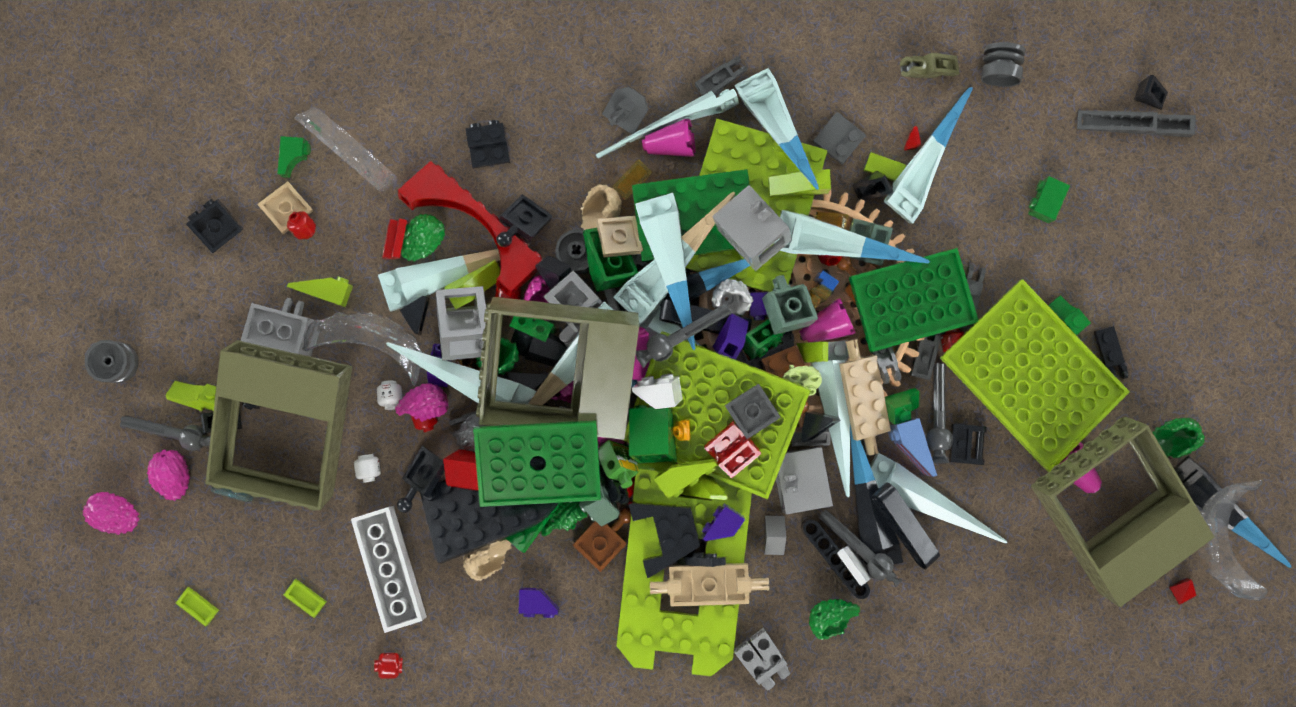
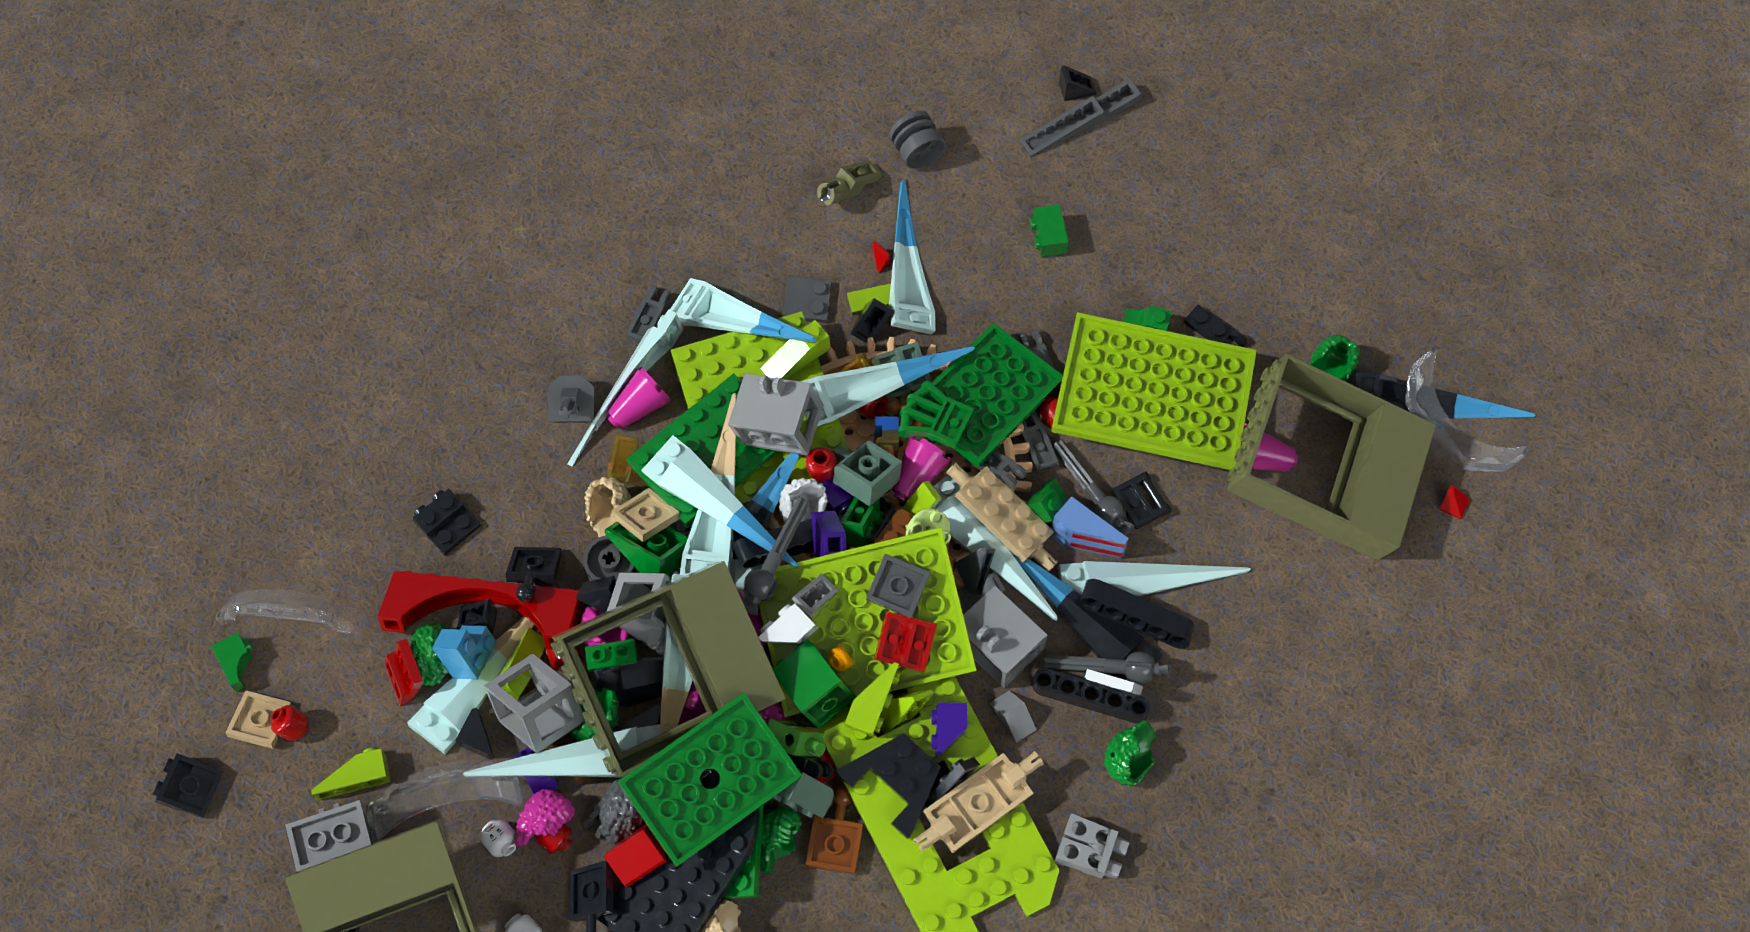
camera: 35 degrees left, 20 degrees down
(442, 253) = (464, 650): none -> dark azure brick
(467, 230) = (478, 614): none -> black slope
(691, 379) = (815, 595): none -> light grey slope
(767, 277) = (821, 463): none -> red head
(872, 309) = (948, 424): none -> green plate

